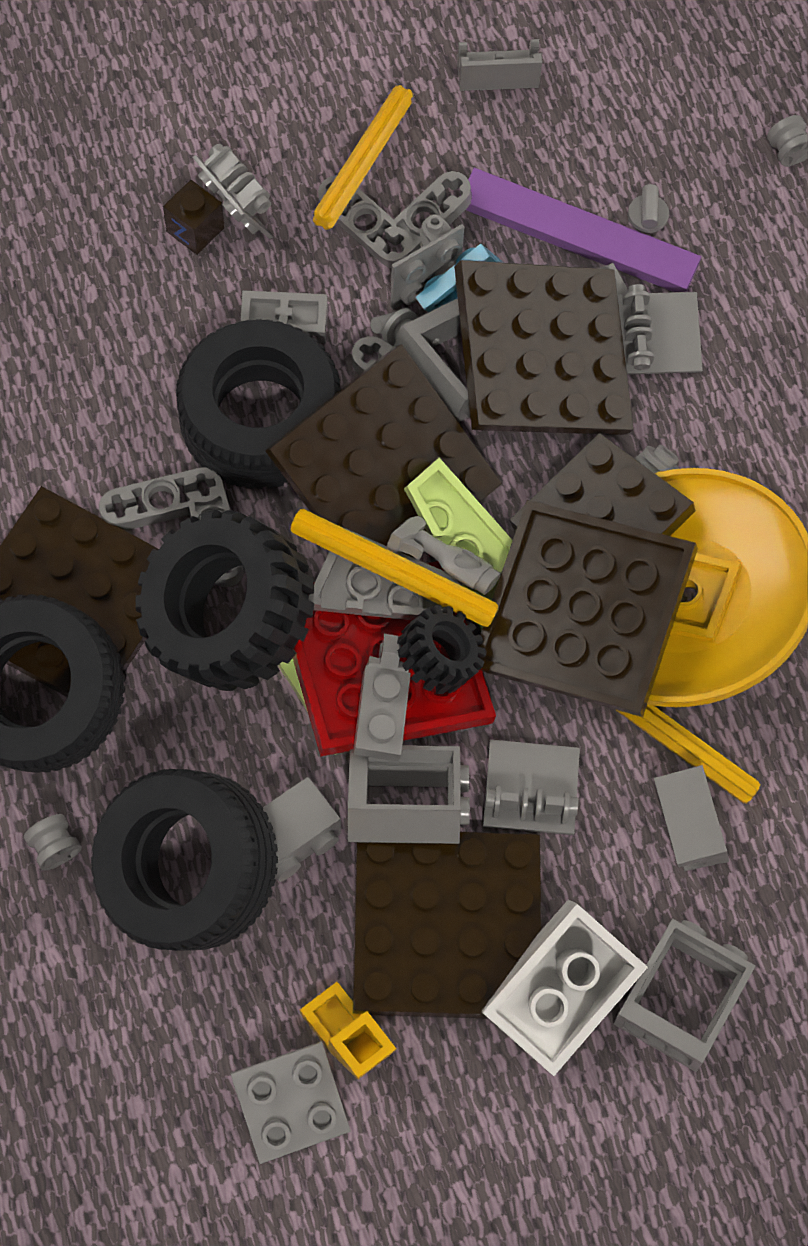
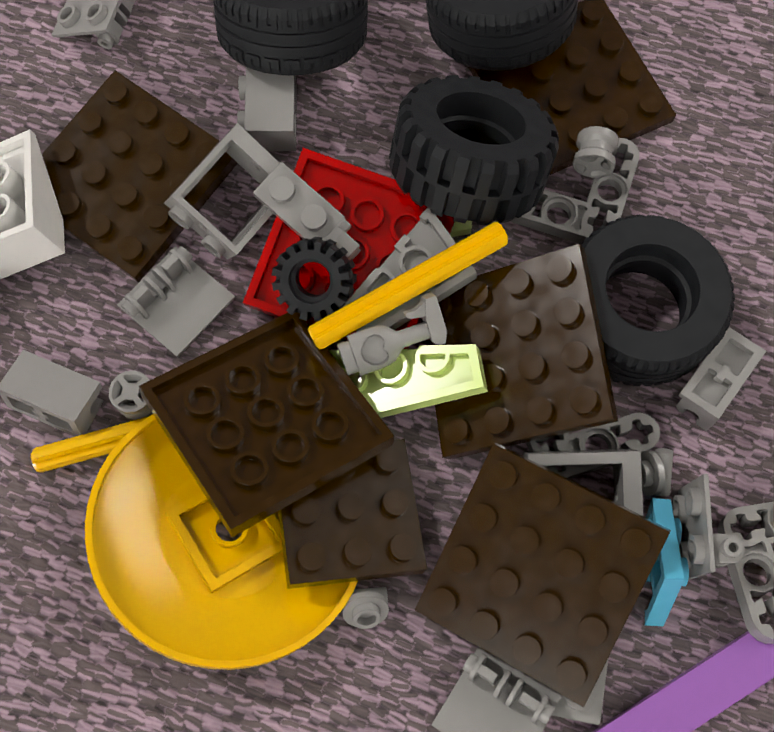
camera: 130 degrees right, 5 degrees up
(142, 516) = (595, 152): none -> light grey wheel
(348, 1036) = (91, 59): yellow slope -> none
(643, 742) = (126, 389): none -> light grey wheel

